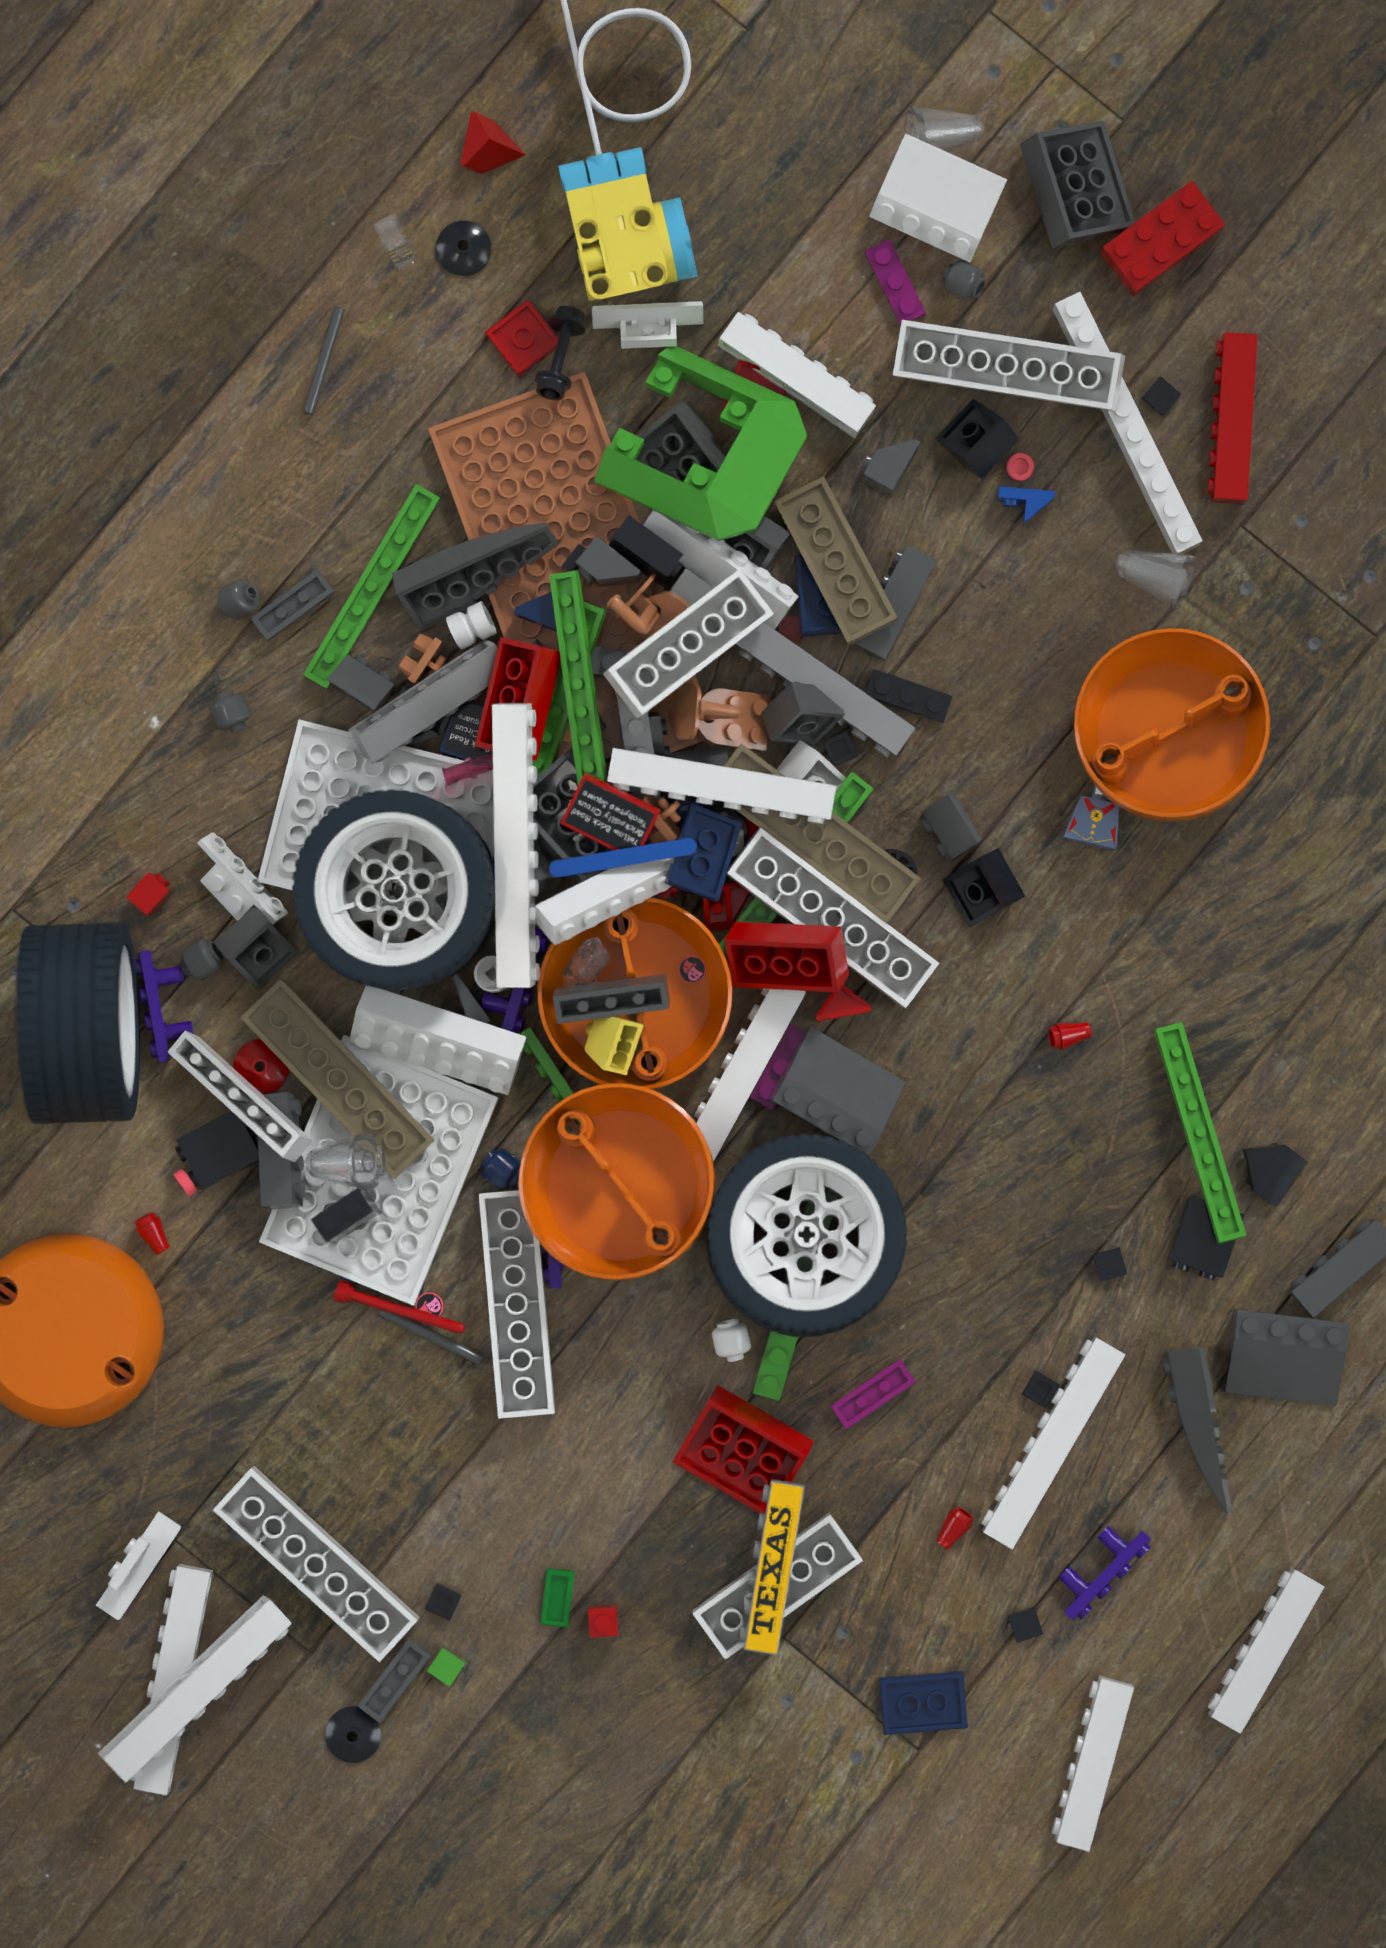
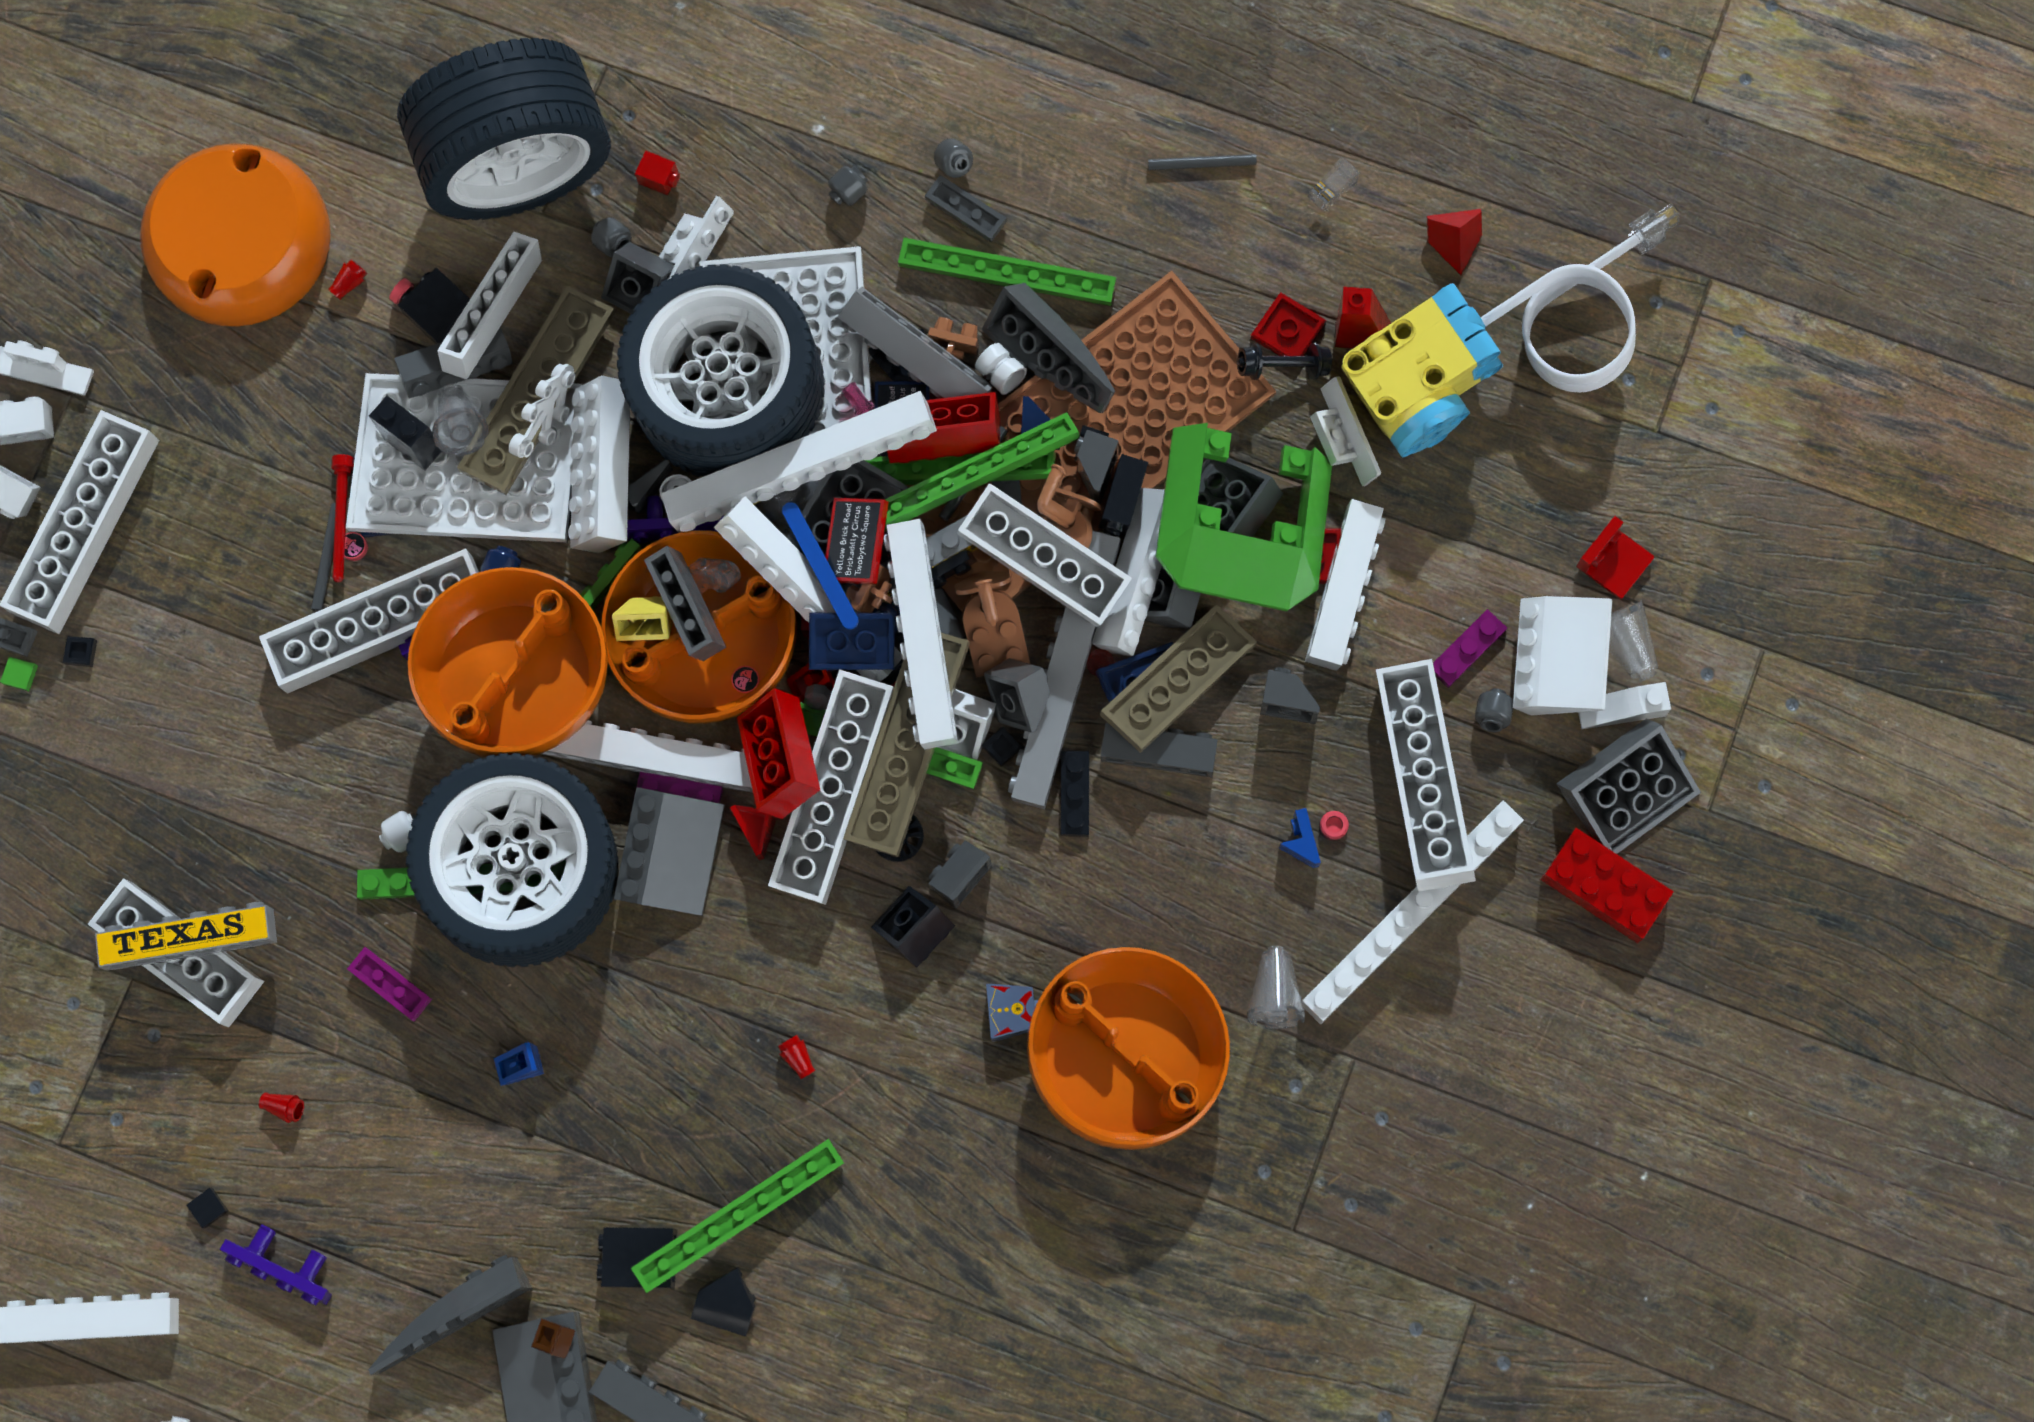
camera: 75 degrees right, 10 degrees down
(149, 994) = (564, 204): dark purple plate -> none
(273, 1074) = (515, 328): red dish -> none
(362, 683) = (912, 288): dark grey slope -> none
(366, 1065) = (543, 411): none -> white plant
(468, 261) = (1348, 260): black dish -> none
(549, 267) = (1358, 317): none -> red slope
(557, 1597) = (112, 754): green tile -> none
(603, 1621) = (98, 801): red brick -> none
(738, 904) = (817, 696): none -> dark grey tile
(741, 1448) = (302, 876): red slope -> none
(859, 115) = (1615, 560): none -> red bracket
(923, 1702) = (104, 1133): dark blue tile -> none
(977, 438) = (1345, 774): black slope -> none
(990, 1296) = (519, 1064): none -> blue slope
(1003, 150) = (1629, 706): none -> white slope
(1040, 1389) = (442, 1145): black tile -> none
(1053, 1442) = (392, 1174): white brick -> none
(1109, 1264) = (584, 1172): black tile -> none
(1161, 396) = (1453, 938): black tile -> none
(1233, 418) = (1457, 1014): red brick -> none
(1258, 1333) = (553, 1338): none -> reddish brown slope

